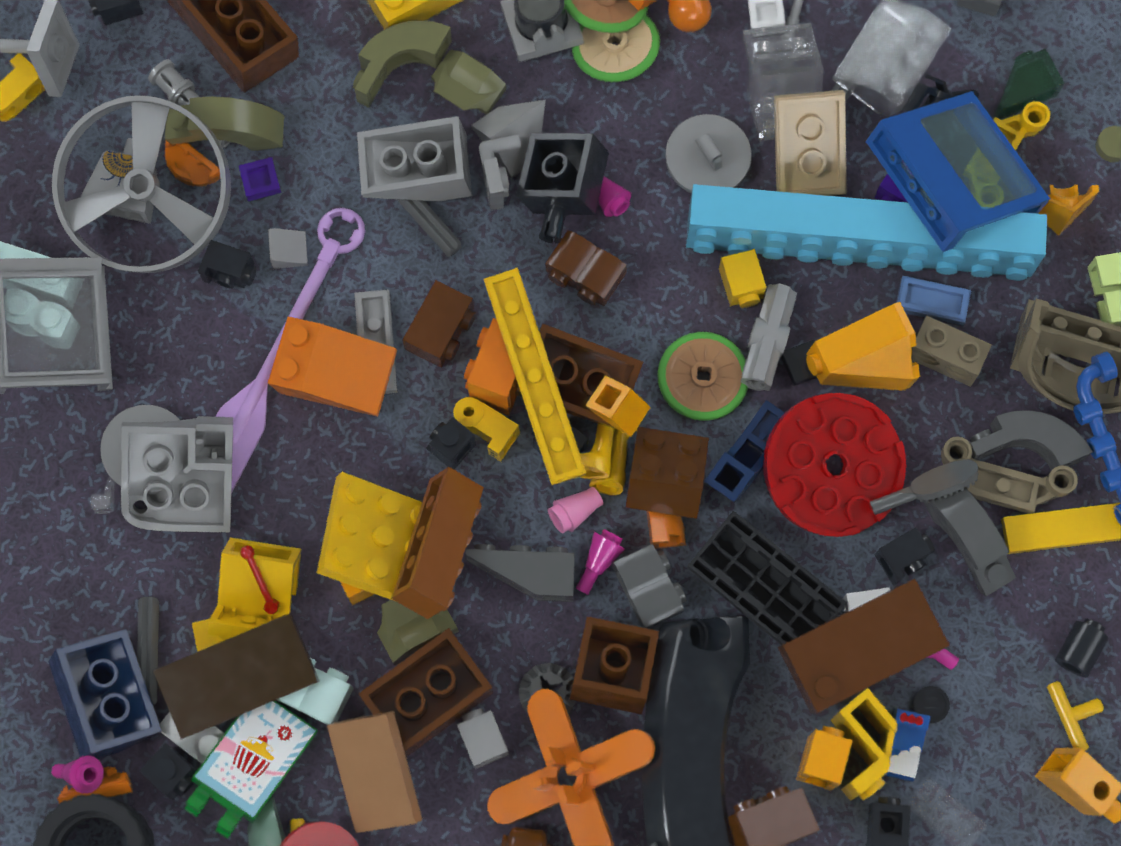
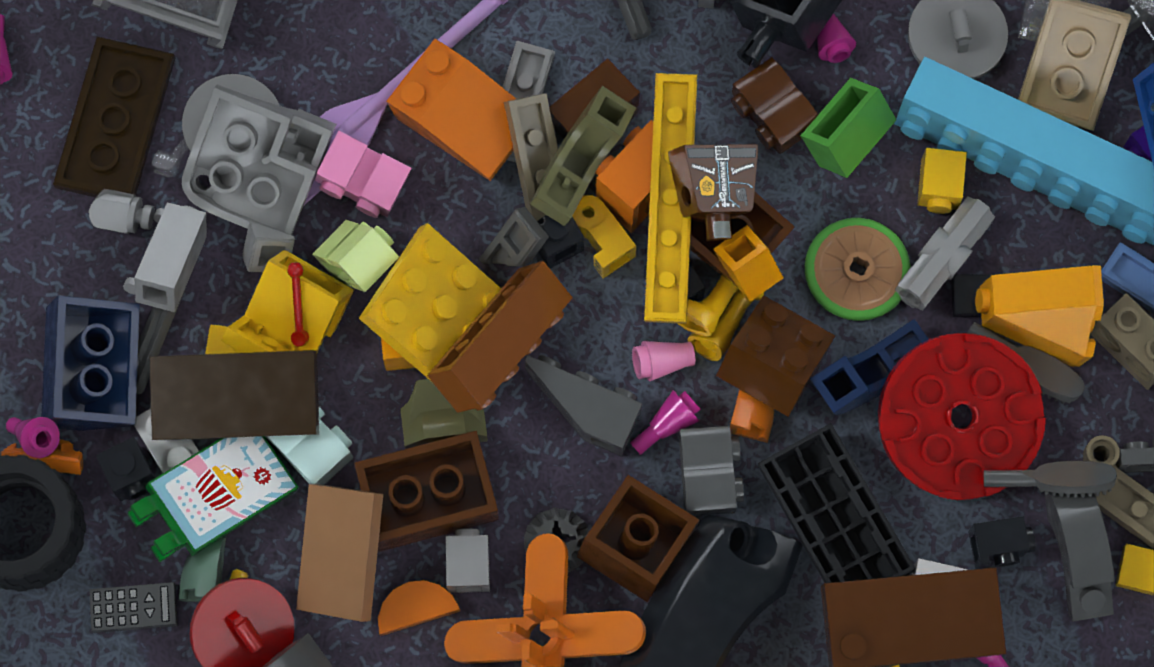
camera: 20 degrees right, 0 degrees up
(45, 483) = (114, 118): none -> dark brown tile
(80, 558) = (120, 212): none -> light grey arm
(136, 580) = (169, 257): none -> light grey brick
(211, 540) = (263, 244): none -> light grey slope
(270, 452) = (361, 175): none -> bright pink brick
(292, 519) = (357, 254): none -> yellowish green piece
(409, 382) = (532, 142): none -> dark tan plate
(420, 458) = (516, 241): none -> dark grey tile
(446, 366) = (581, 154): none -> olive arch
(451, 790) = (413, 605): none -> orange tile
(567, 351) = (715, 183): none -> reddish brown torso
(652, 264) = (848, 127): none -> bright green brick
(894, 403) = (1053, 375): none -> dark grey piece

